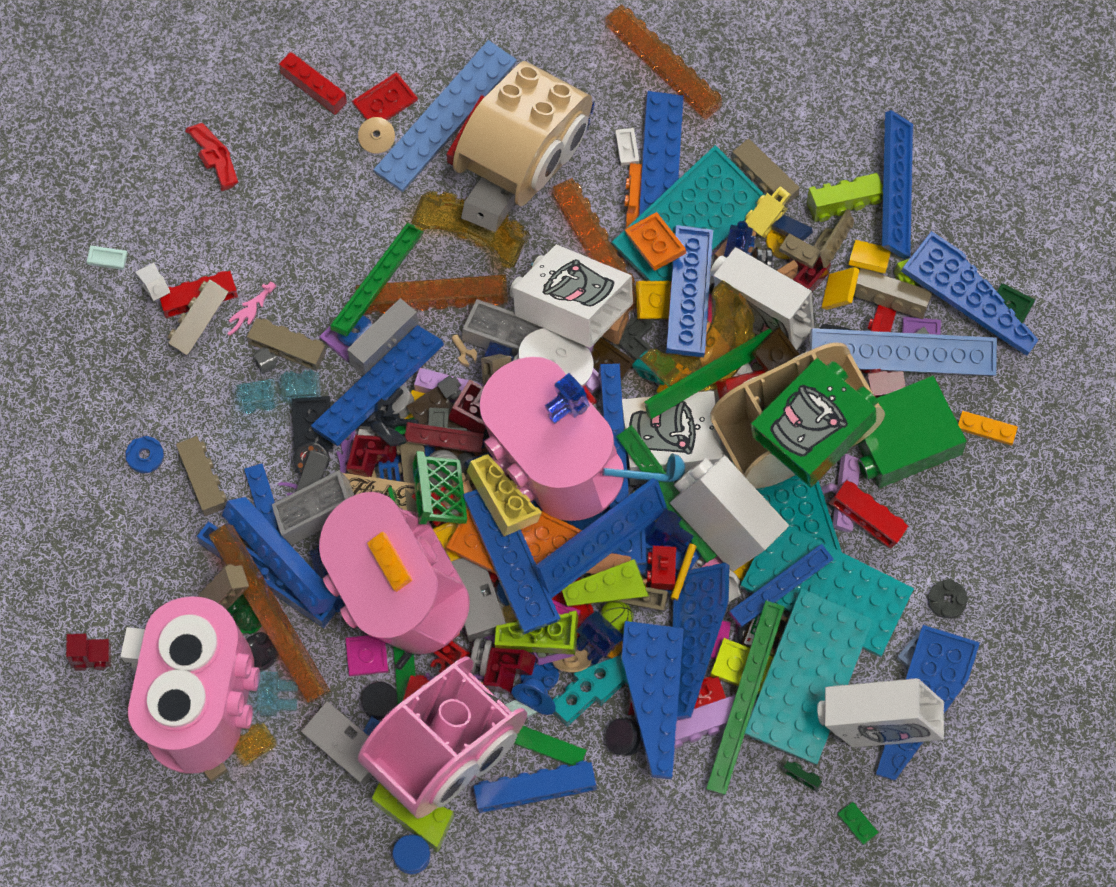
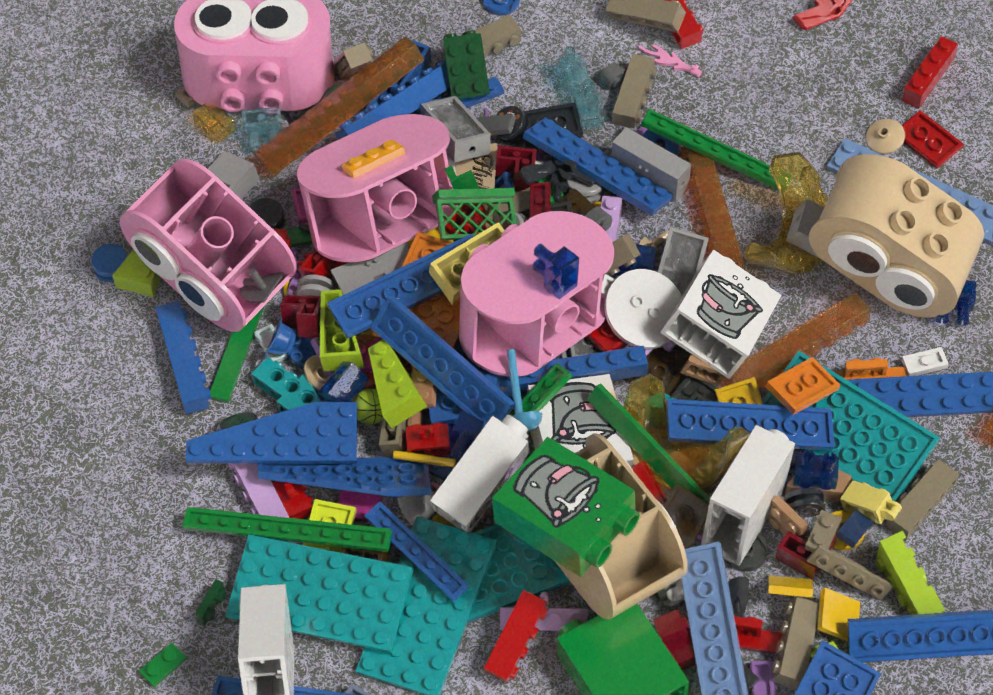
camera: 85 degrees right, 10 degrees down
(235, 487) = (465, 64): none -> dark green bracket

